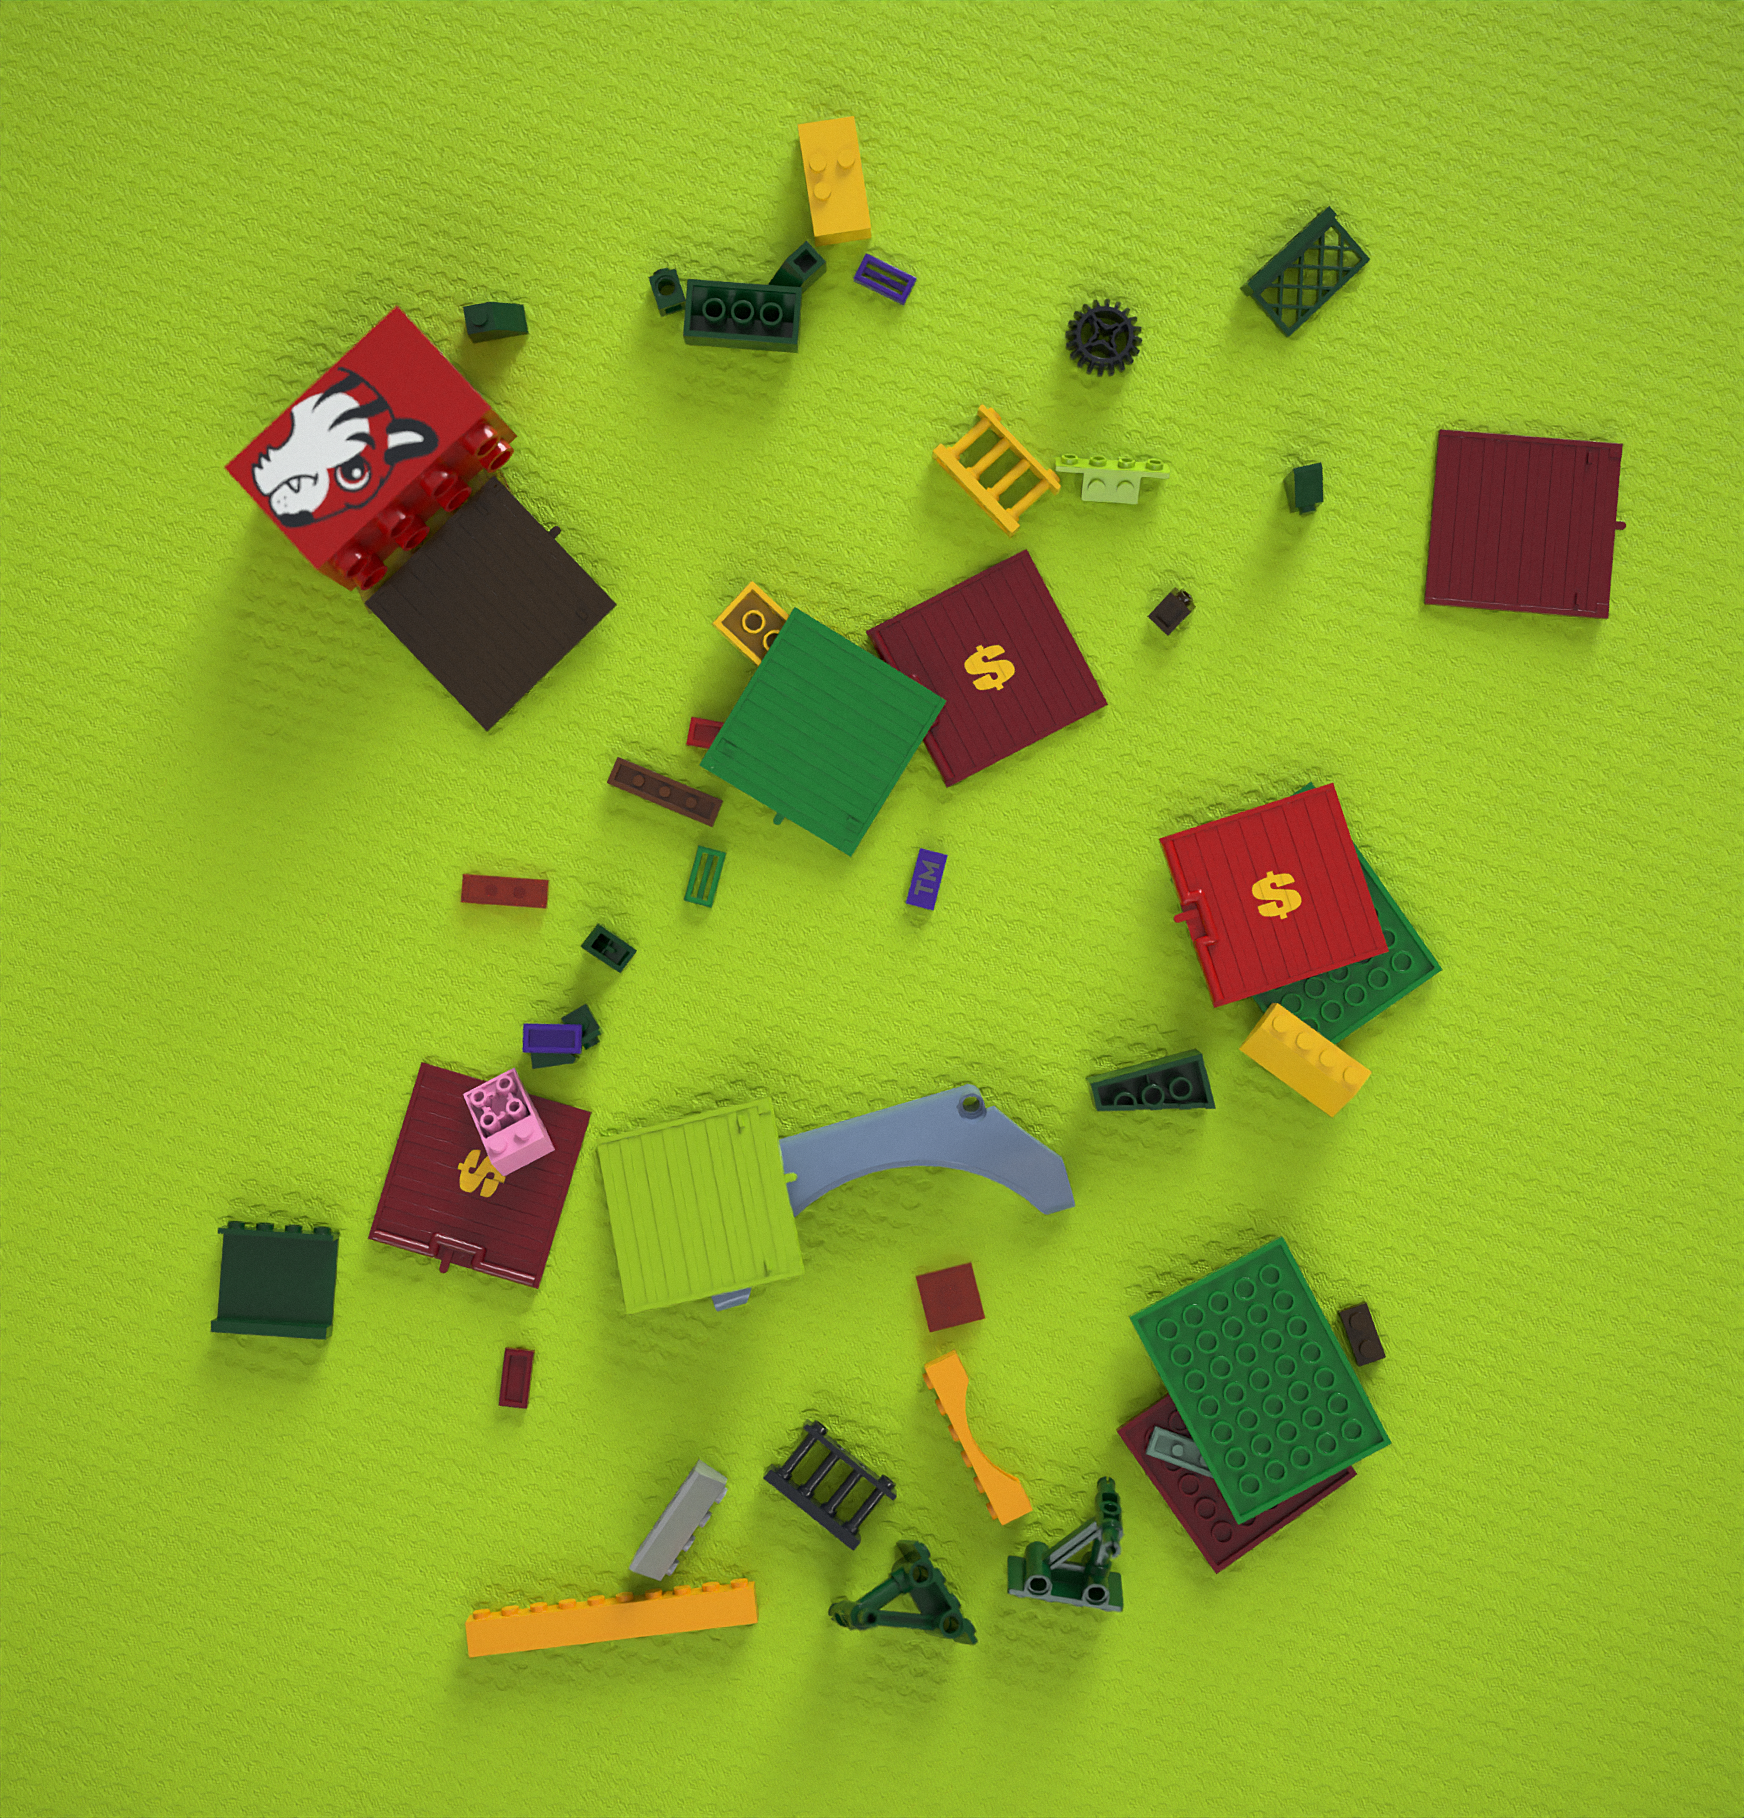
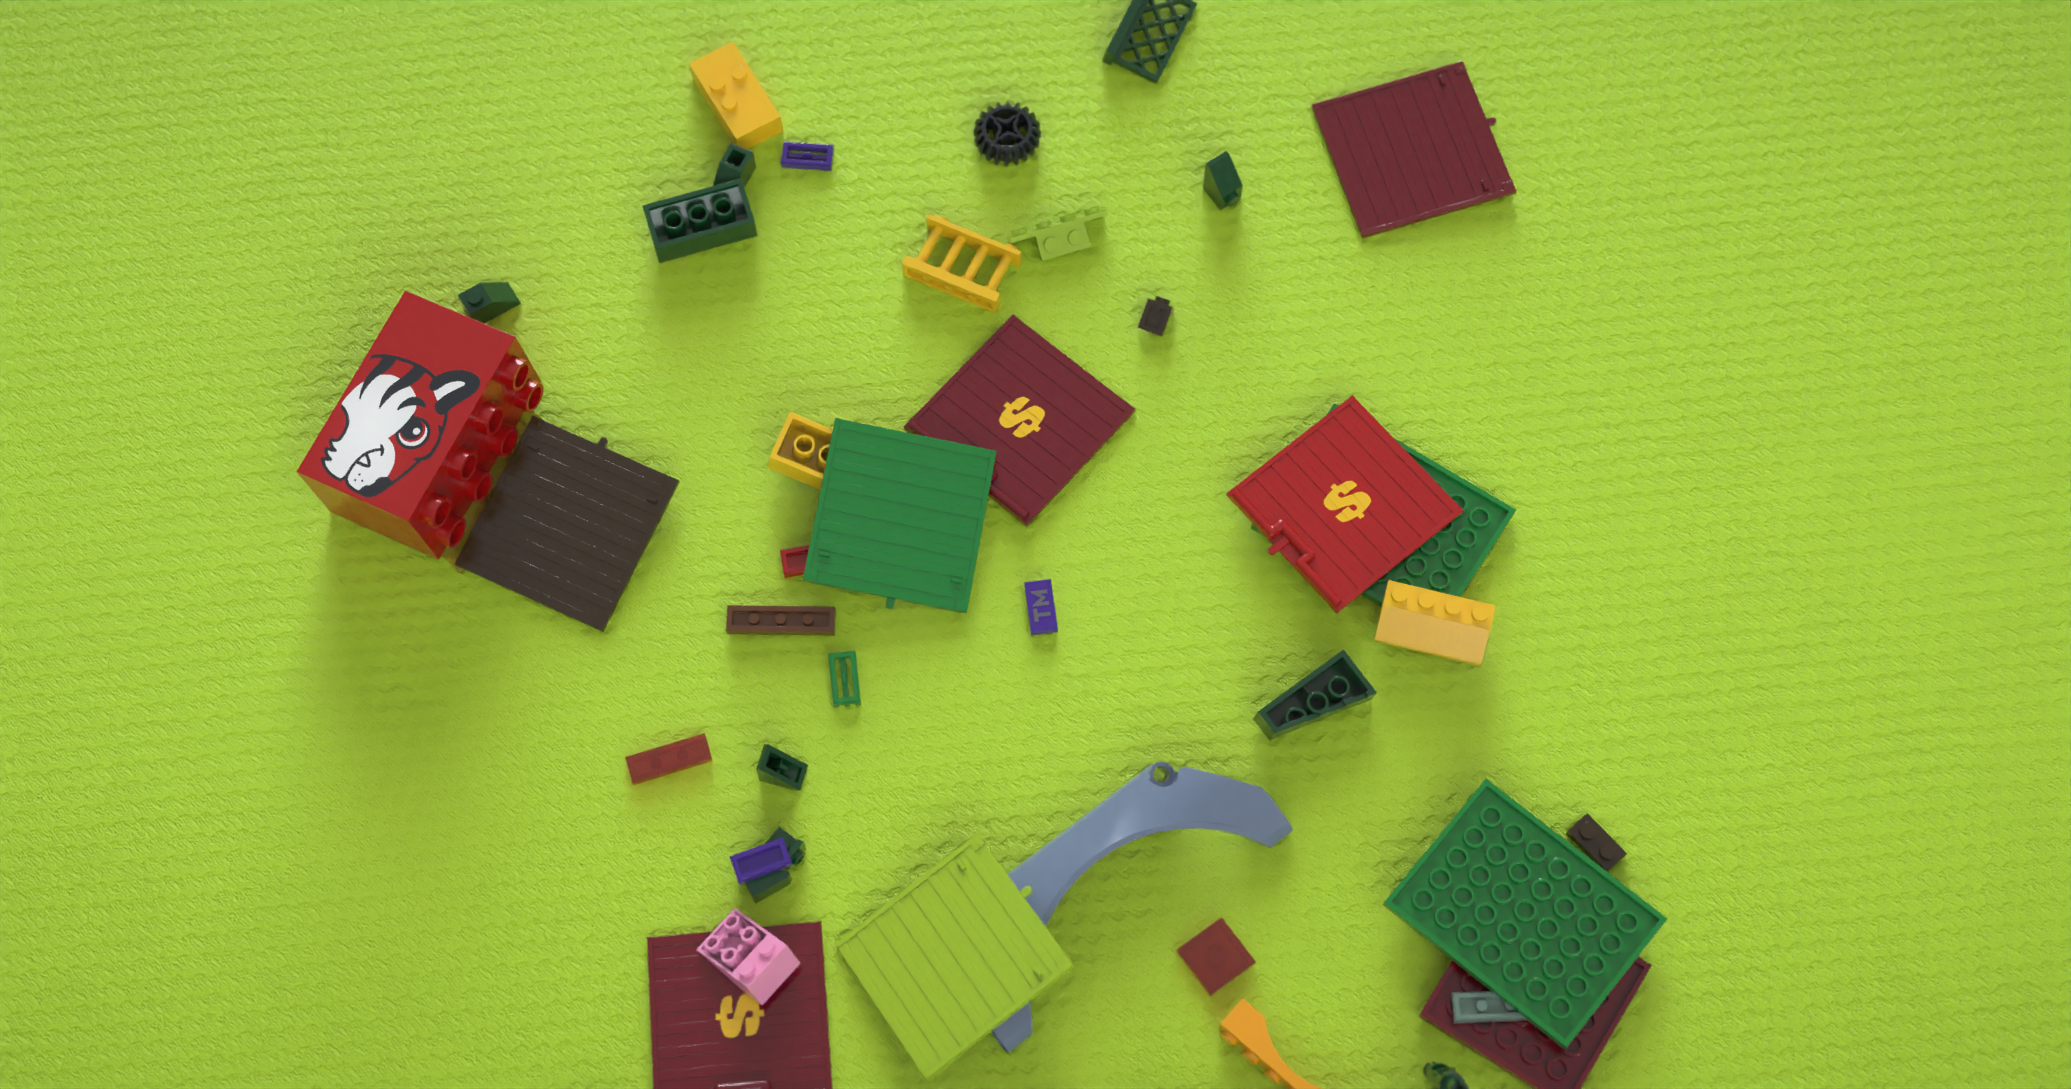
camera: 20 degrees left, 20 degrees down
(670, 303) = (631, 236): dark green brick -> none

